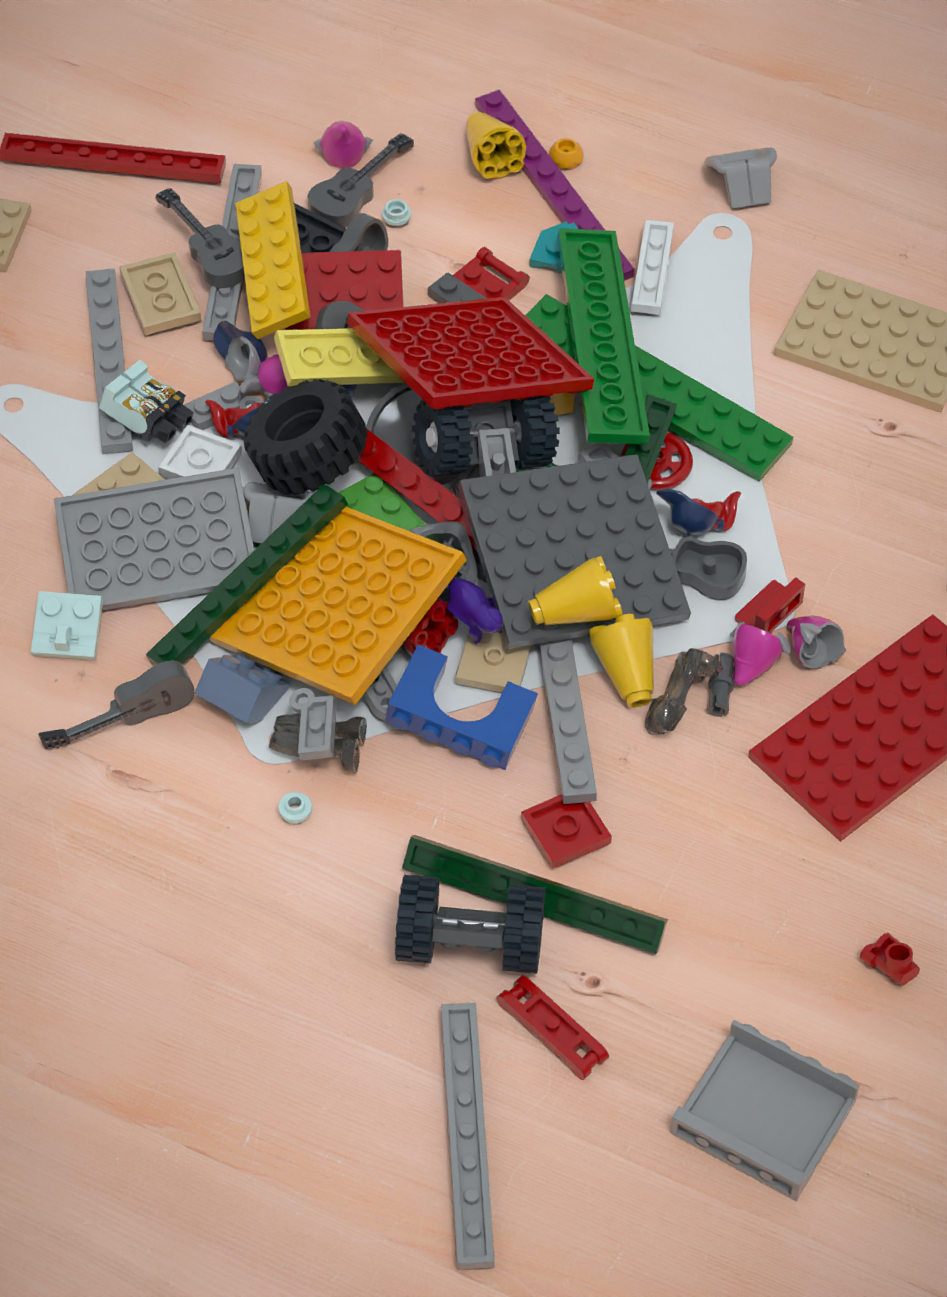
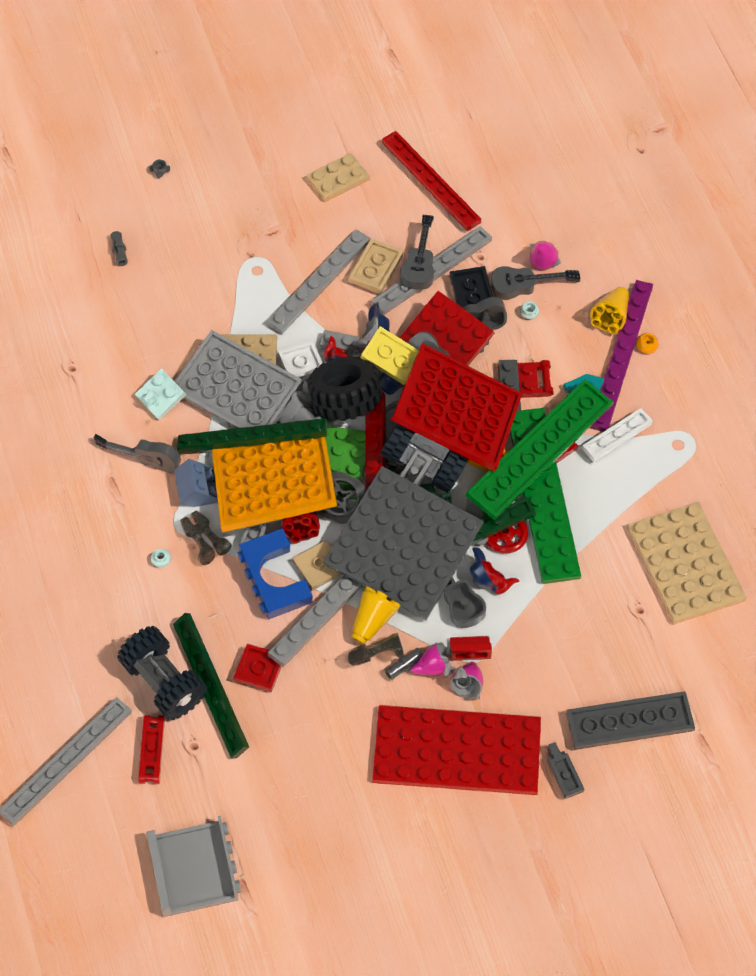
camera: 45 degrees right, 5 degrees up
(145, 404) = (303, 316): hips -> none
(272, 260) = (429, 289): yellow plate -> none
(316, 724) = (201, 527): light grey hinge -> none
(473, 608) = (326, 531): dark purple head -> none
(578, 597) = (369, 566): yellow cone -> none
(746, 182) = (715, 428): light grey piece -> none
(891, 958) = (324, 853): red plate -> none

